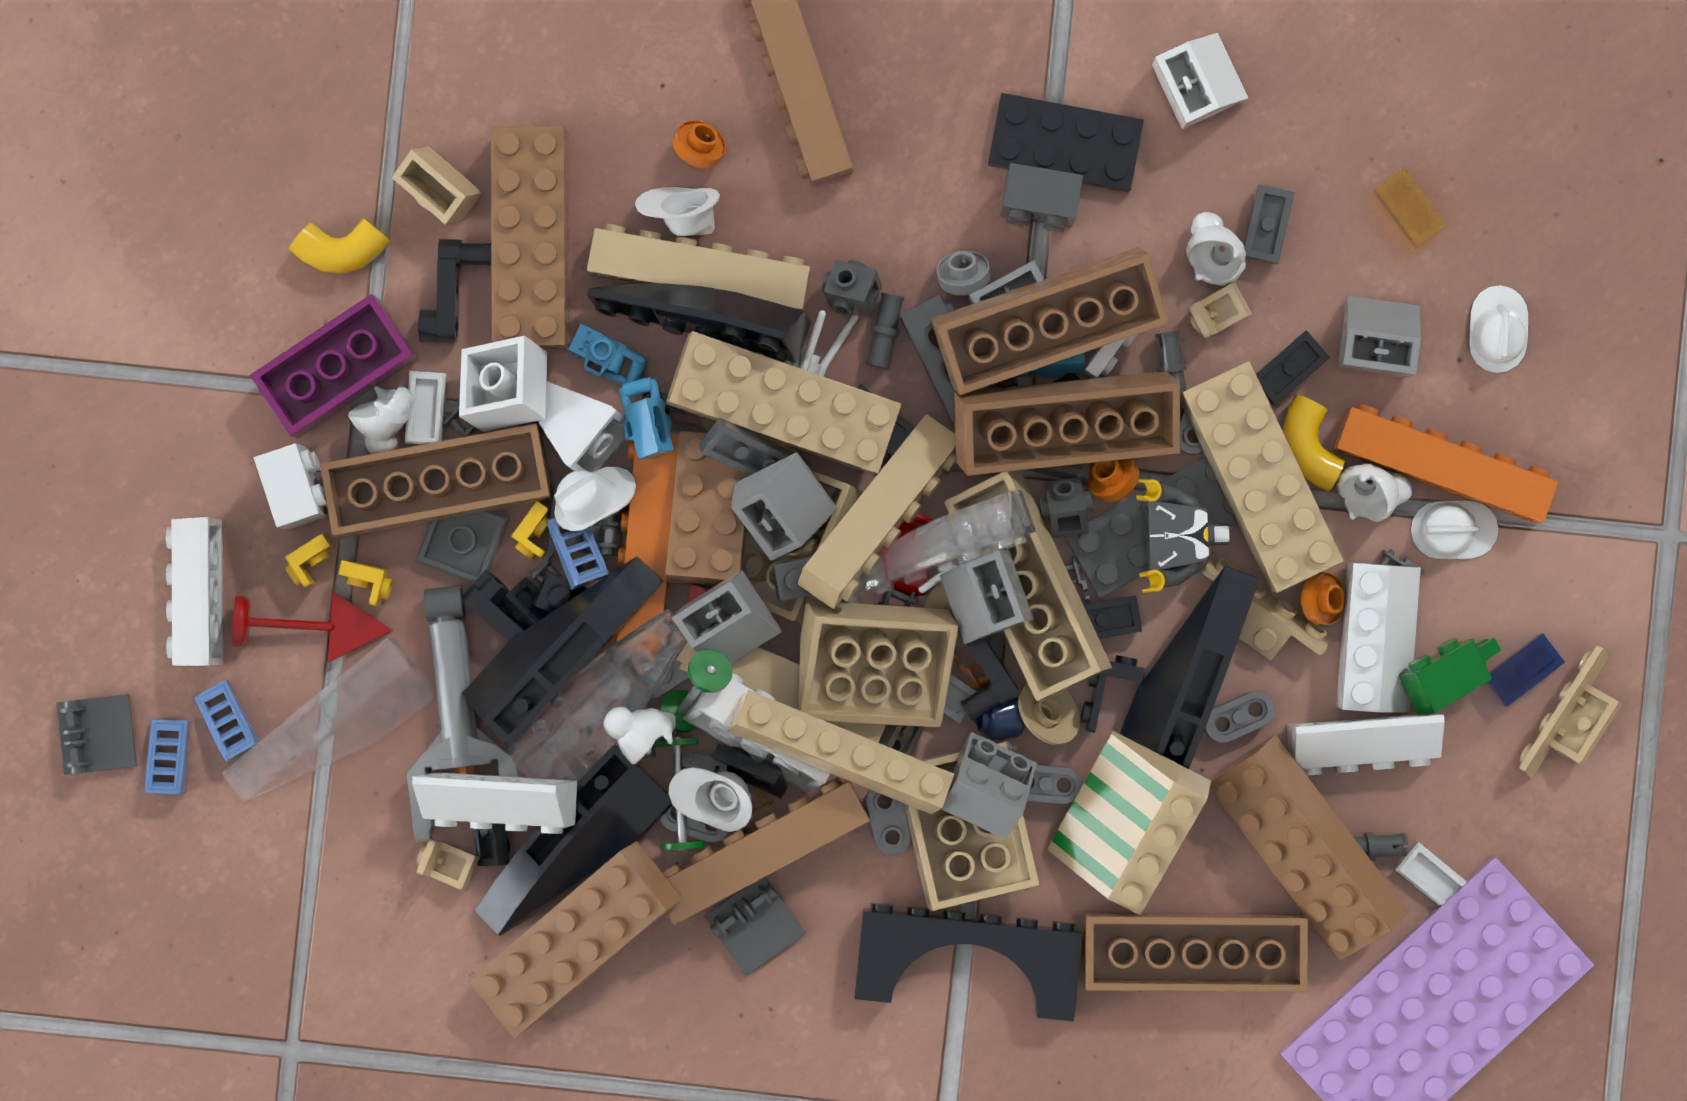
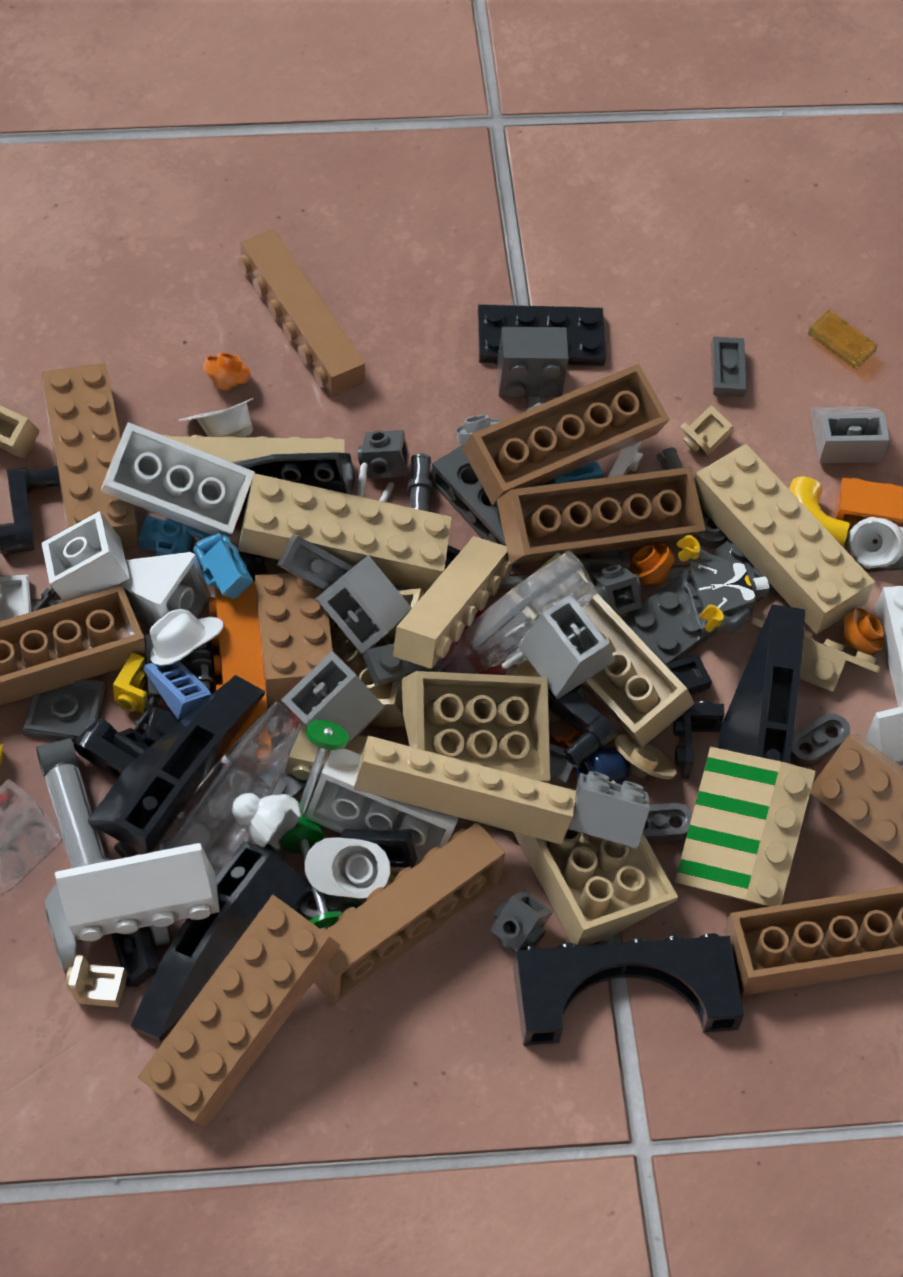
camera: 25 degrees left, 30 degrees down
(609, 320) = (177, 481): none -> white slope
(754, 925) = (411, 992): dark grey hinge -> none
(877, 875) = (520, 921): none -> dark grey brick
(888, 819) = (519, 875): flat silver plate -> none
(1199, 79) = (637, 272): white slope -> none
(1205, 251) = (680, 382): white piece -> none
(1291, 367) = (787, 458): black plate -> none

